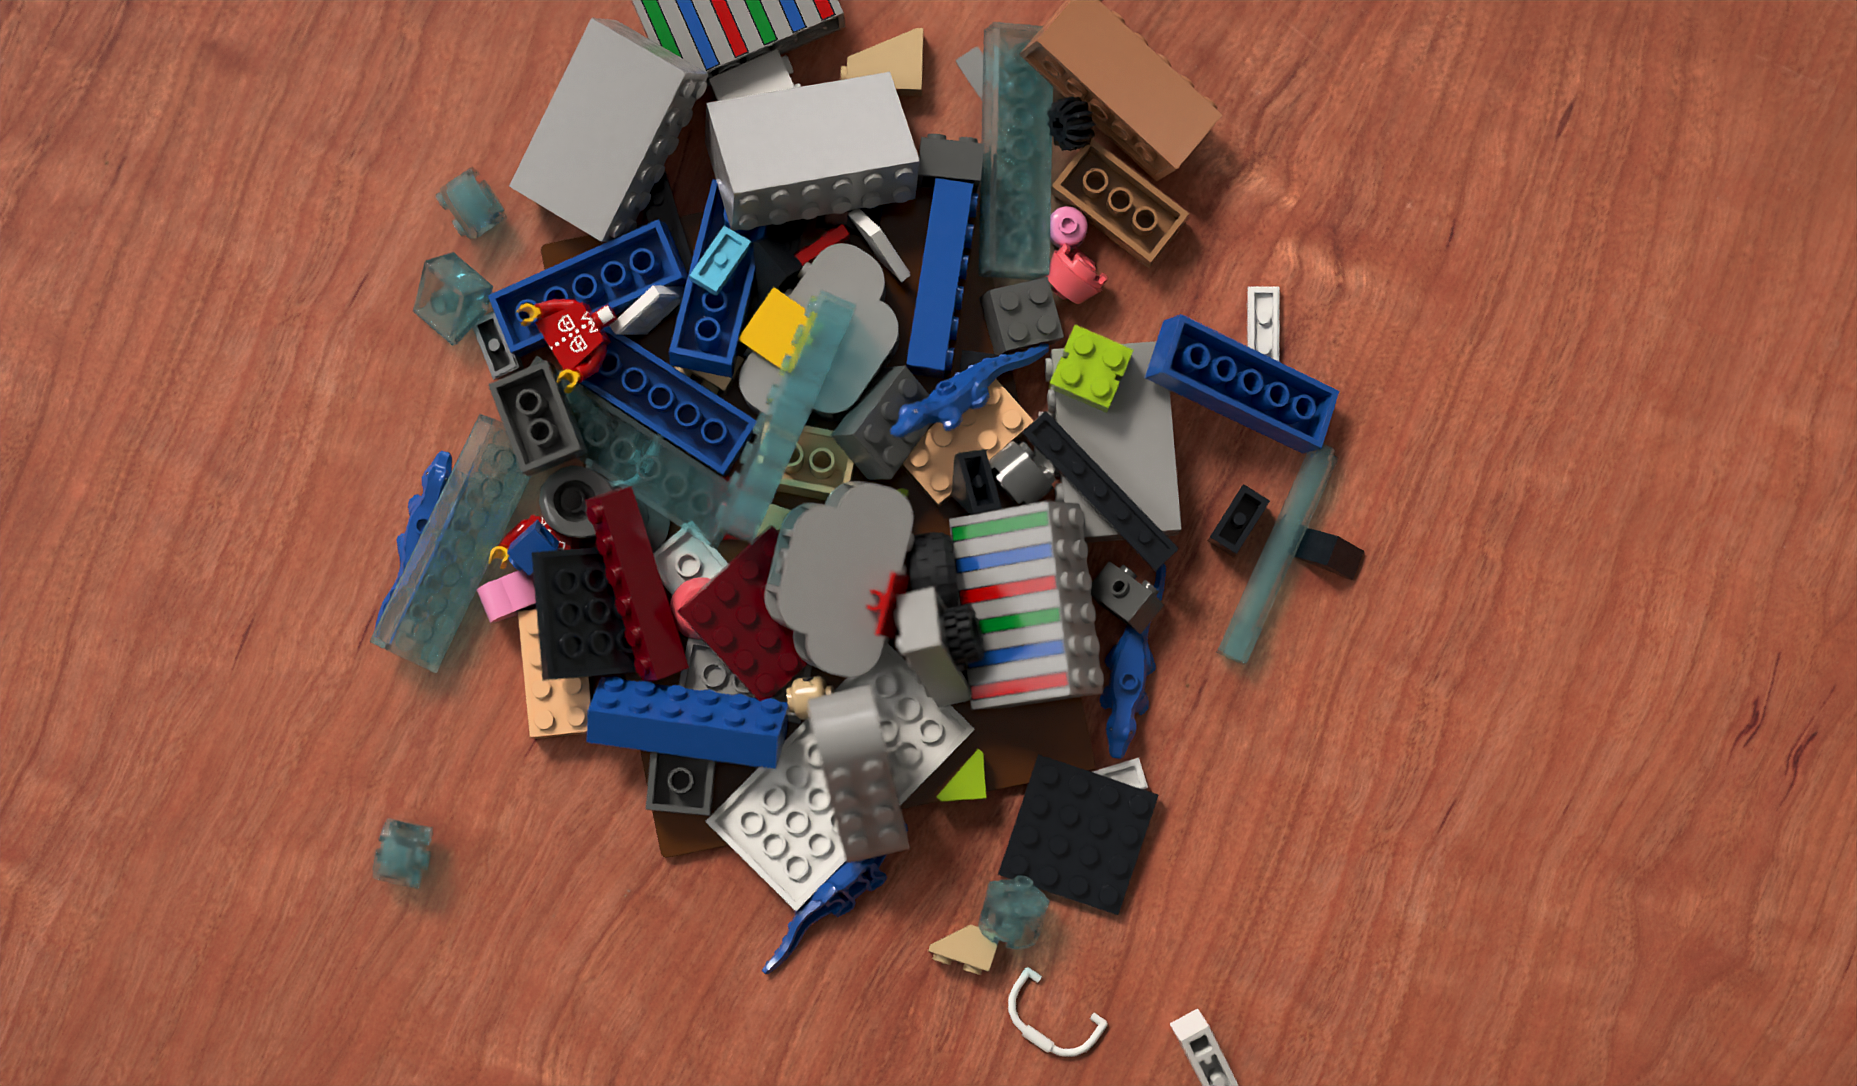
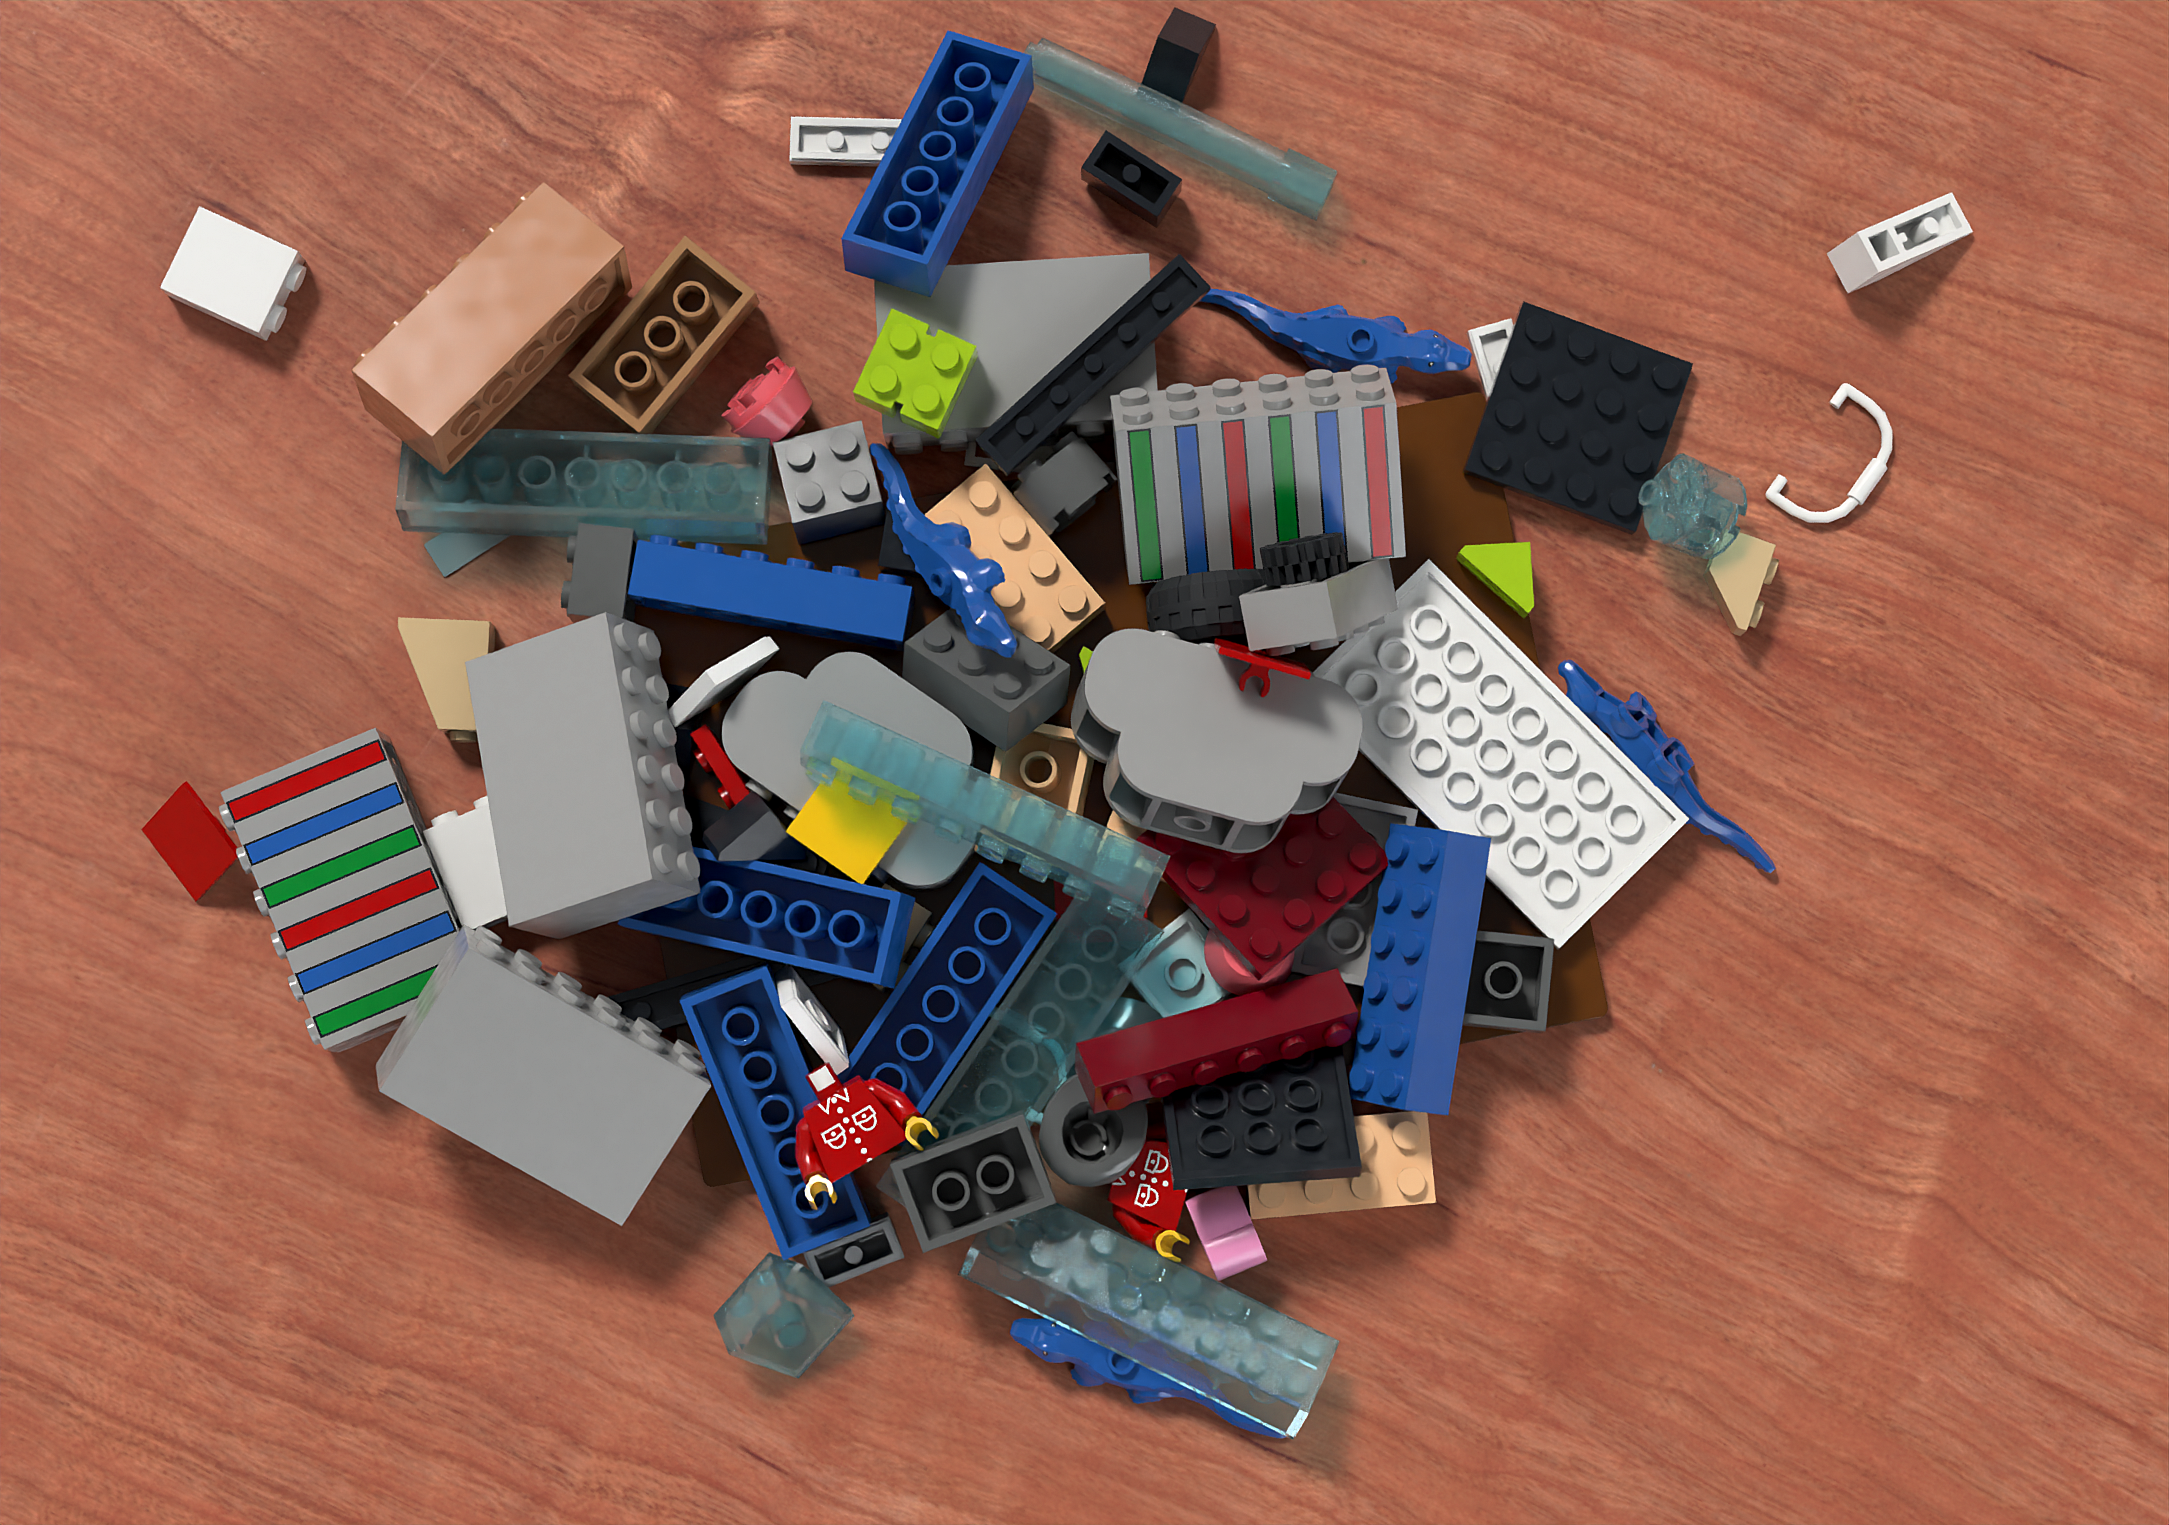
camera: 90 degrees left, 0 degrees up
(402, 853) = (1602, 1391): clear light blue brick -> none
(471, 203) = (643, 1286): clear light blue brick -> none
(533, 539) = (1155, 1200): blue brick -> none
(720, 260) = (745, 909): medium azure plate -> none
(805, 689) = (1383, 791): tan head -> none
(858, 773) = (1500, 713): light grey brick -> none
(974, 483) = (1079, 546): black slope -> none
(1068, 226) = (698, 412): bright pink head -> none
(1070, 123) = (550, 399): black gear -> none
(1125, 597) = (1241, 338): dark grey brick -> none

